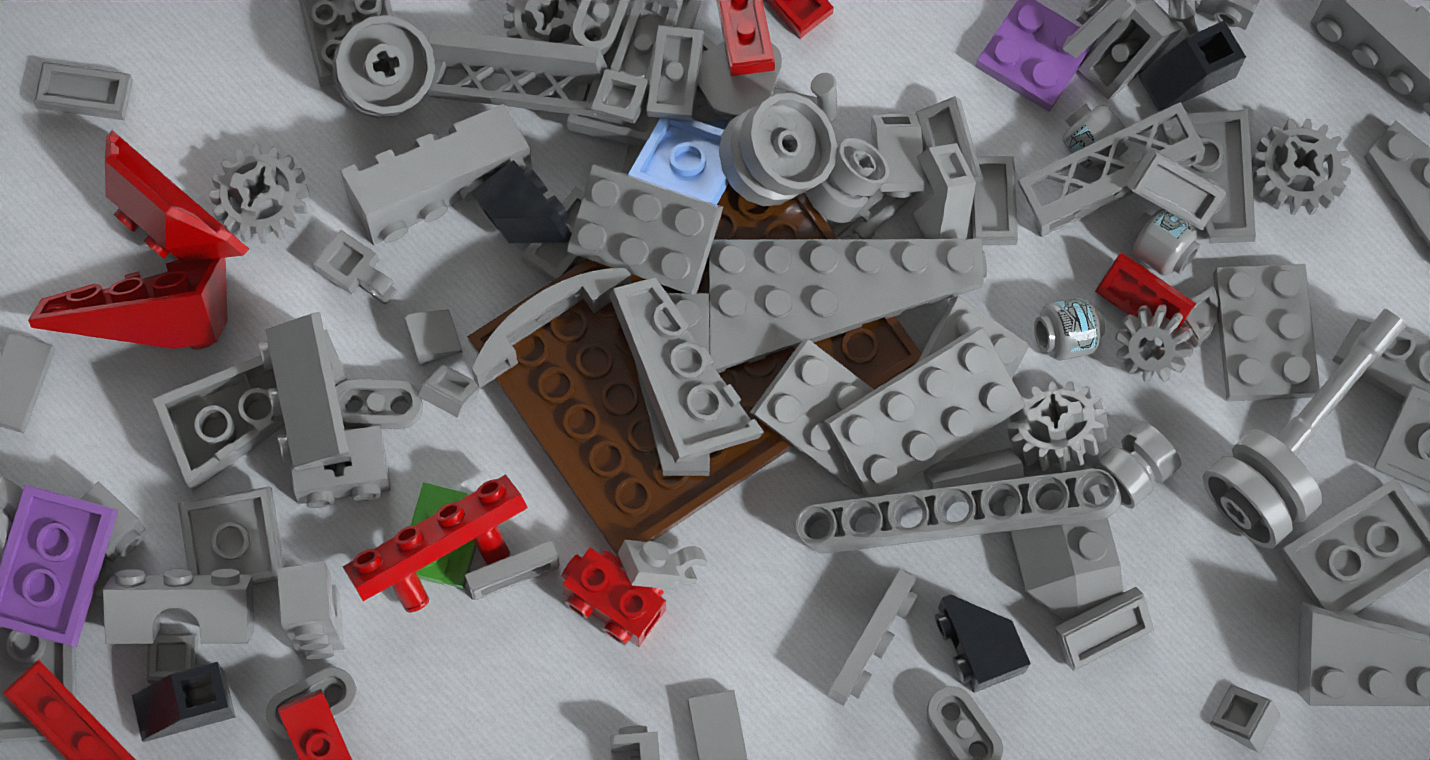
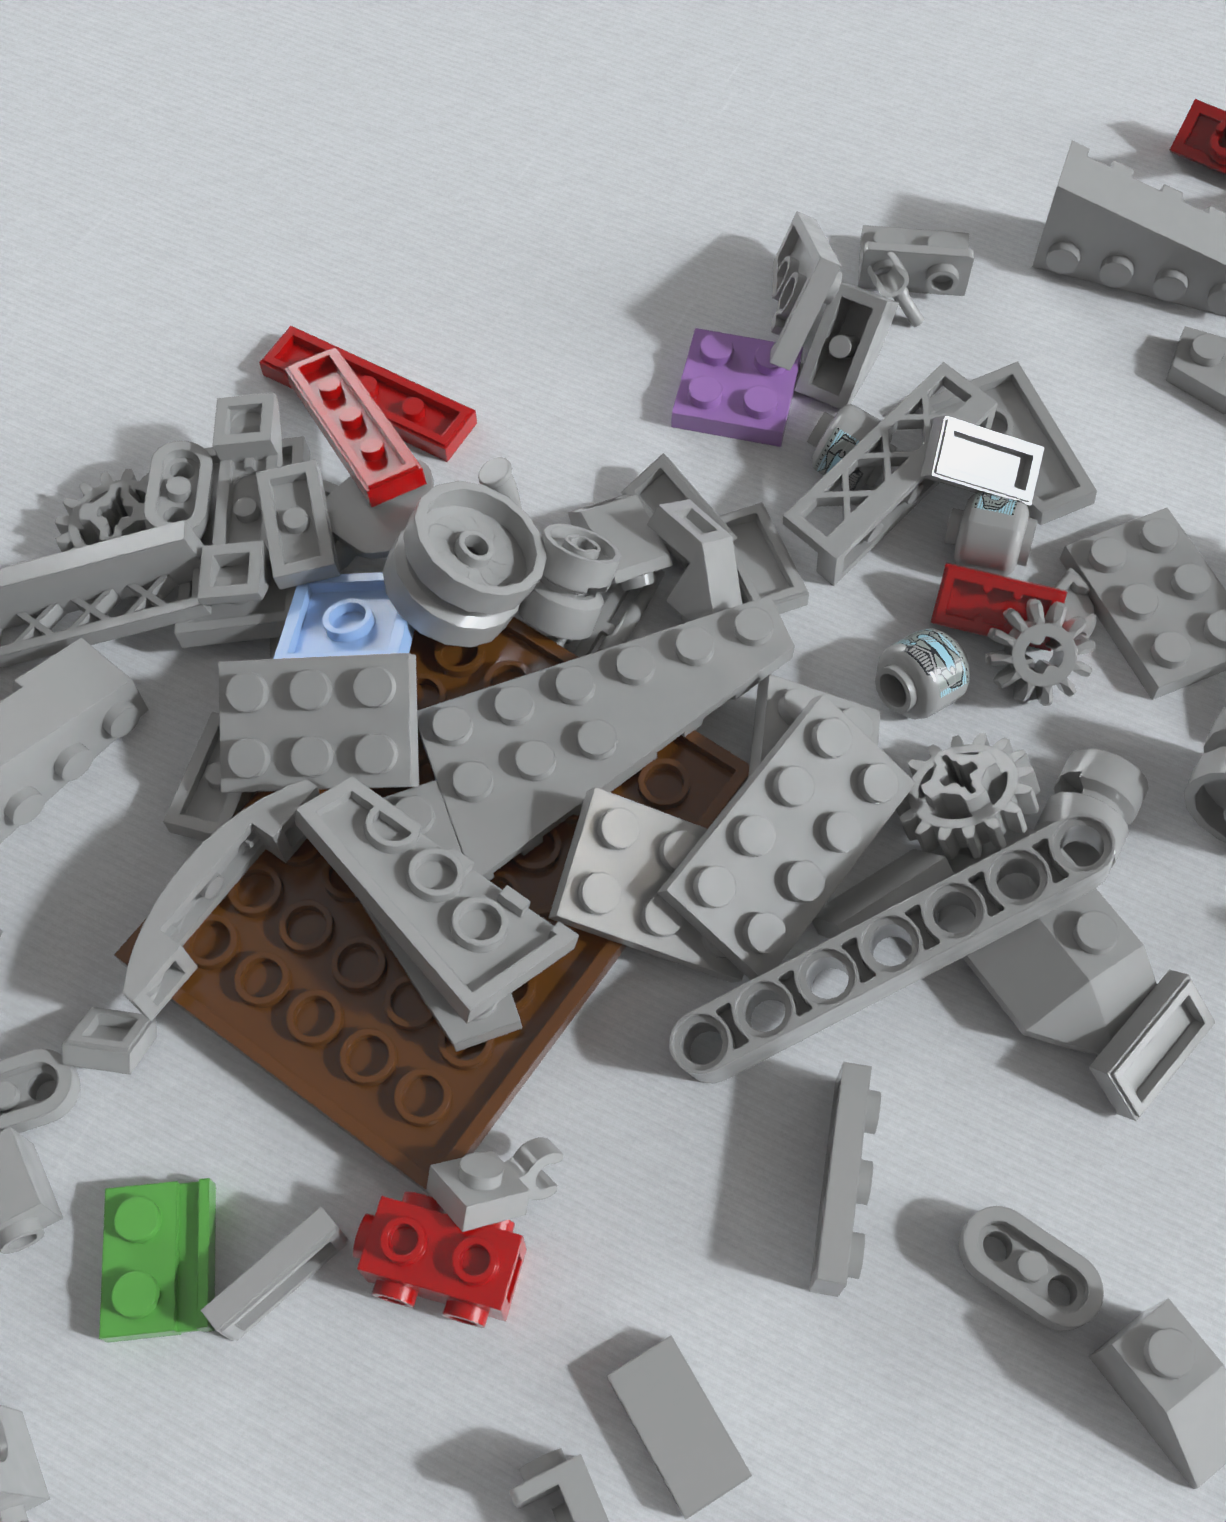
camera: 15 degrees left, 10 degrees down
(417, 546) = (114, 1291): red plate -> none
(433, 335) = (66, 973): light grey slope -> none
(520, 209) = (144, 758): black slope -> none
(984, 642) = (998, 1125): black slope -> none
(1193, 66) = (936, 328): black slope -> none
(1298, 148) = (1108, 404): light grey gear -> none

